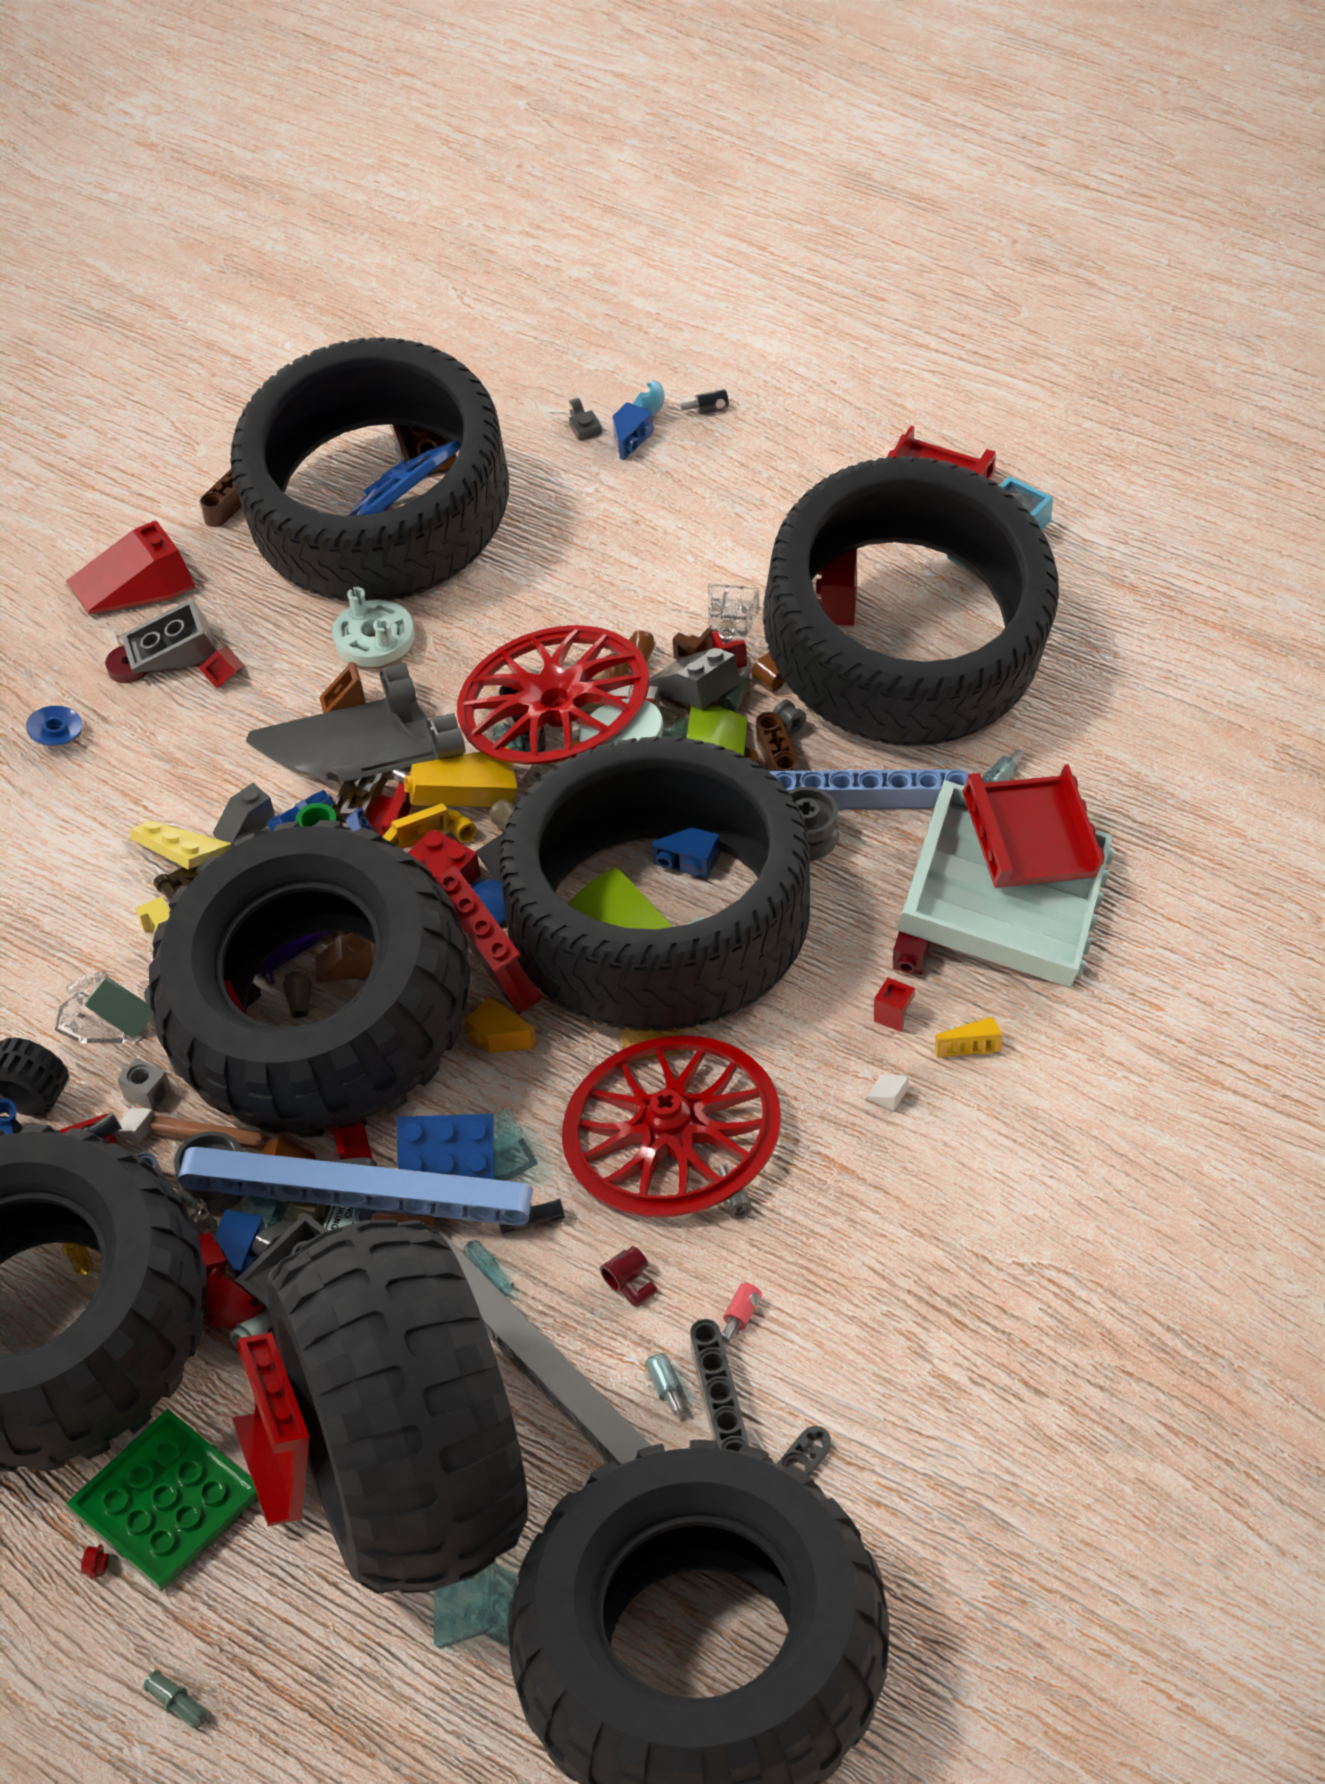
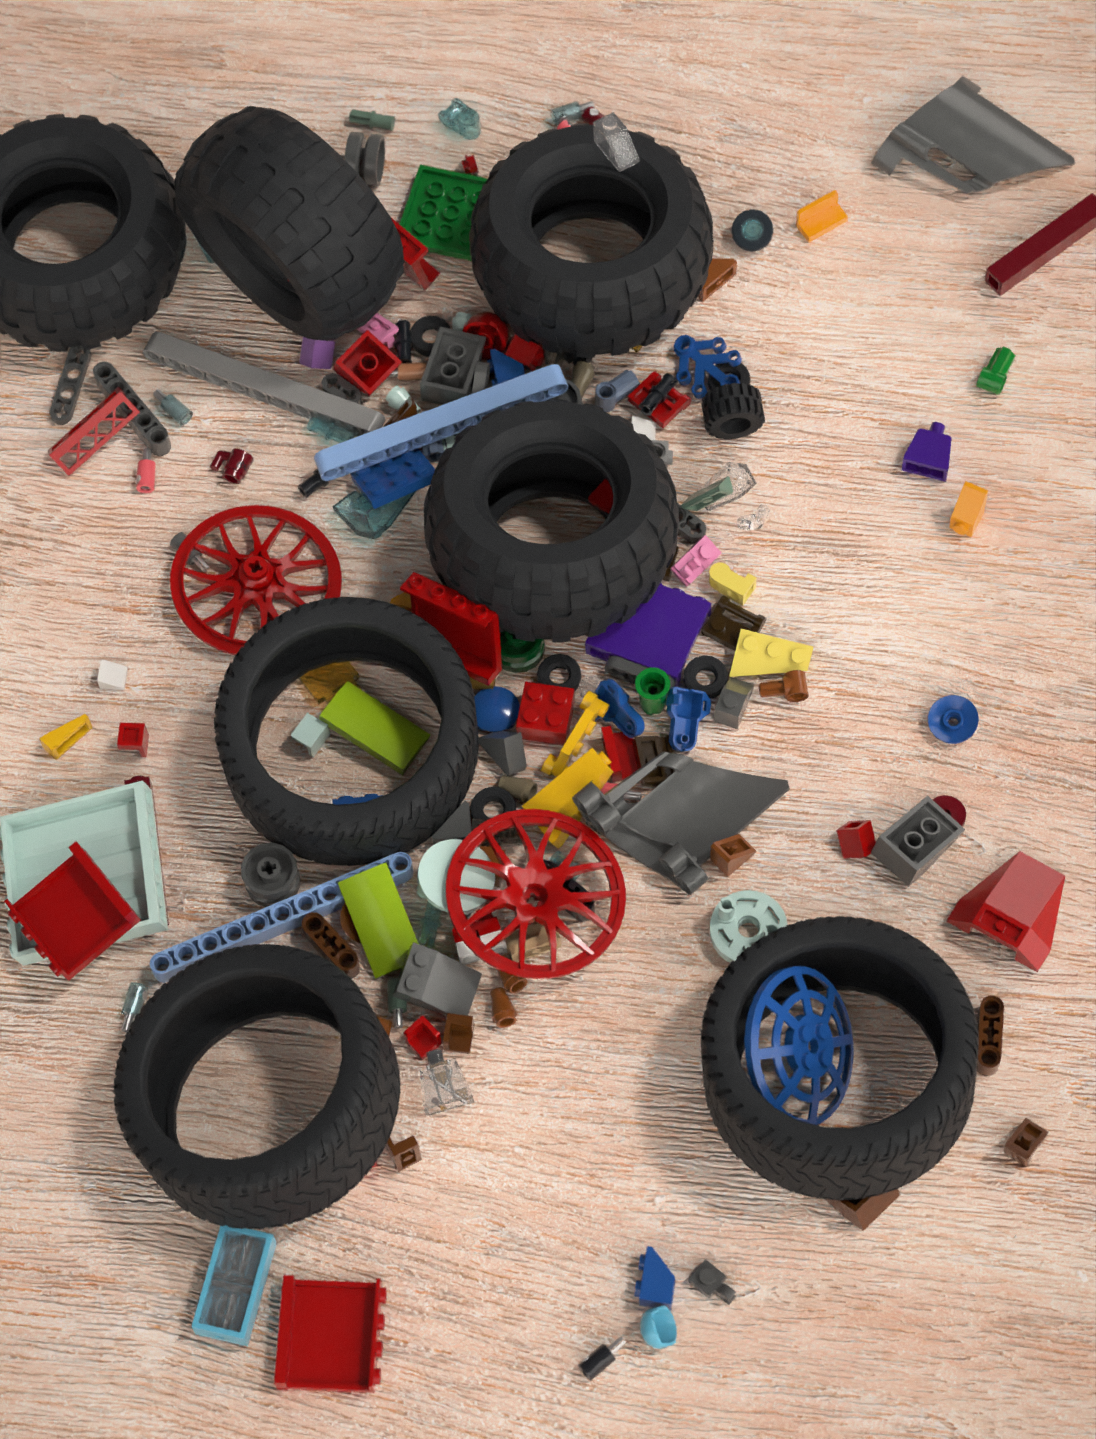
camera: 155 degrees right, 15 degrees up
(60, 1641) = (461, 119): none -> clear light blue piece
(180, 810) = (792, 687): none -> dark orange axle
(226, 1610) = (366, 157): none -> dark grey wheel
(785, 1377) = (83, 428): none -> fence

